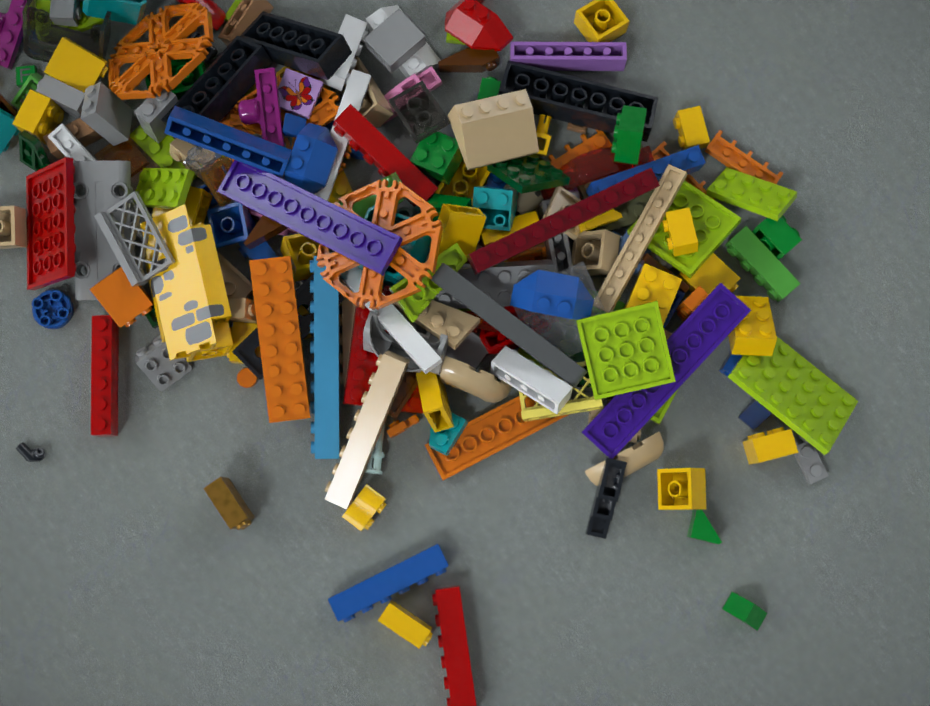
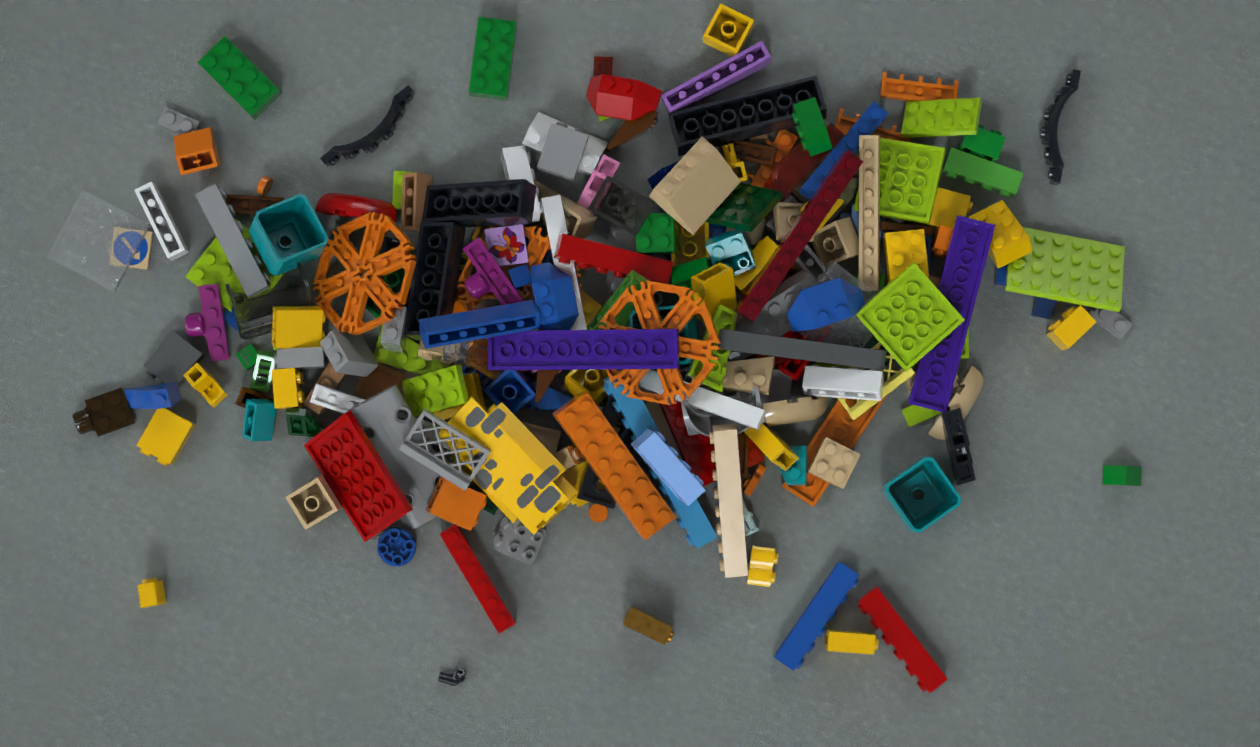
camera: 30 degrees left, 5 degrees up
(325, 367) = (668, 467): none -> light blue brick
(482, 449) = (833, 463): none -> tan brick
(489, 87) = (665, 148): green brick -> none
(561, 535) = (937, 500): none -> teal plate
(565, 137) = (753, 153): none -> reddish brown tile
(584, 448) = (917, 414): none -> lime tile
(681, 232) = (901, 188): yellow brick -> none
(681, 489) = (1016, 404): yellow brick -> none
(691, 128) = (858, 85): yellow brick -> none
(701, 528) = (1050, 427): green slope -> none
(842, 262) = (1049, 131): none -> black piece

